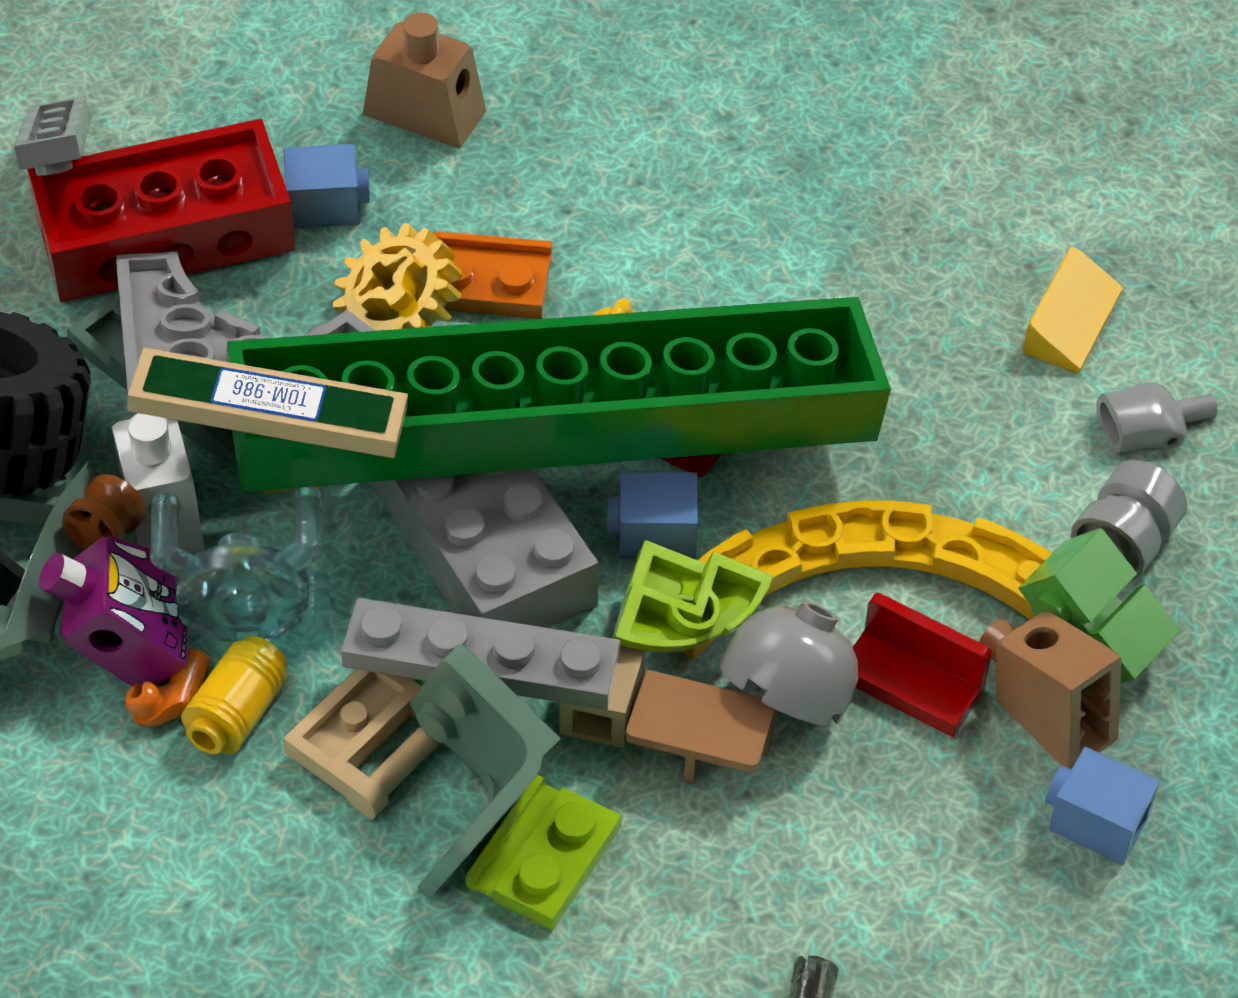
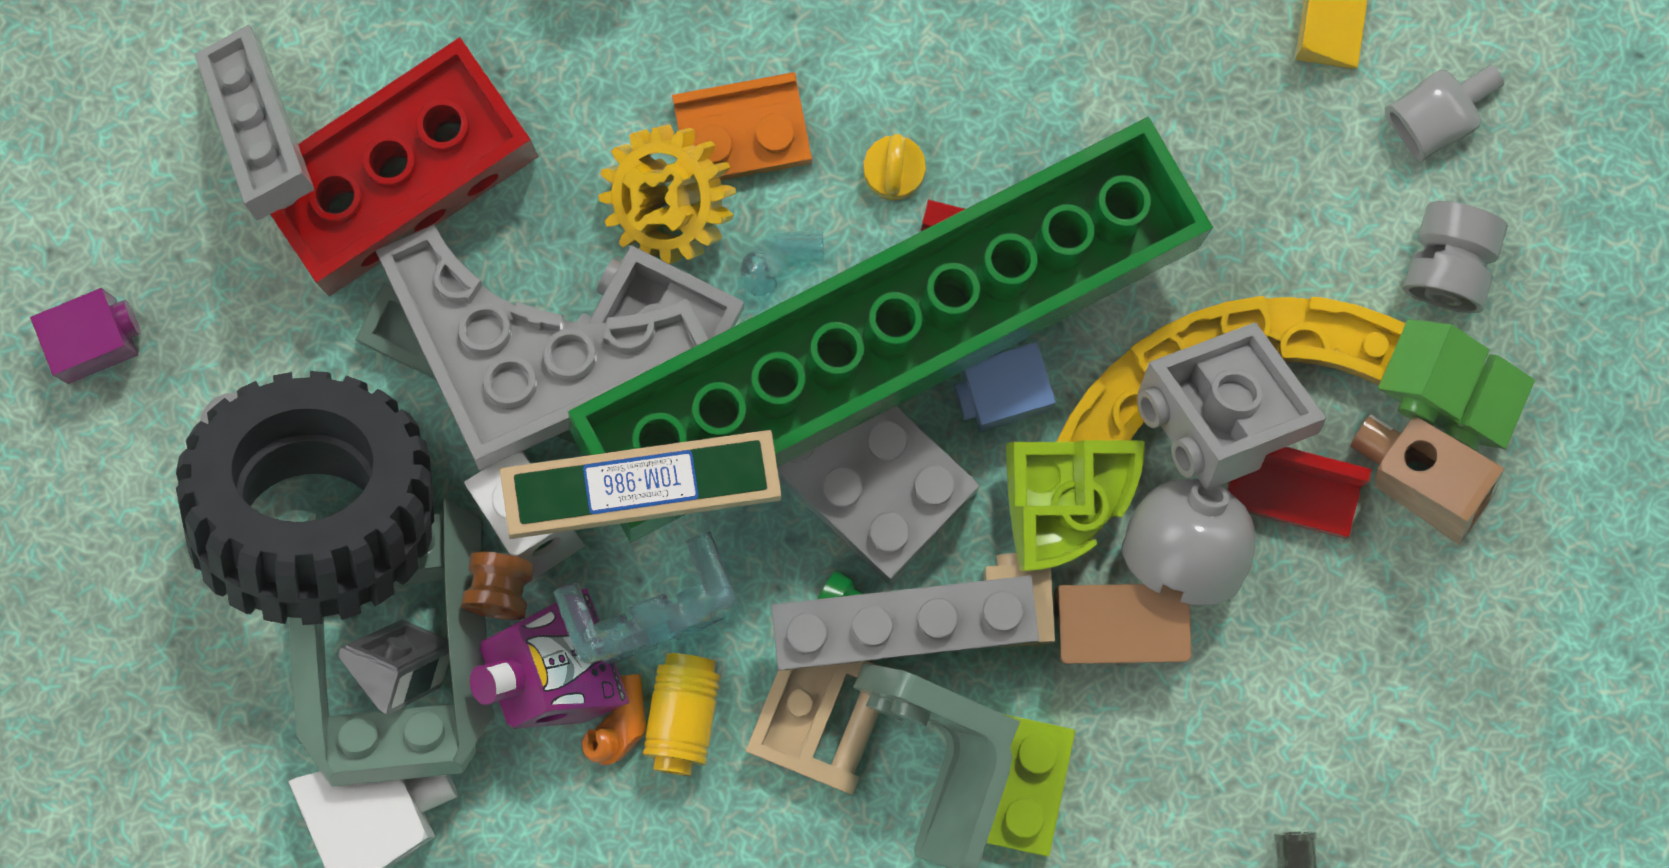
camera: 15 degrees left, 30 degrees up
(325, 185) = (542, 74): medium blue brick -> none
(859, 553) = (1227, 405): none -> light grey plate
(1101, 804) = (1503, 586): medium blue brick -> none

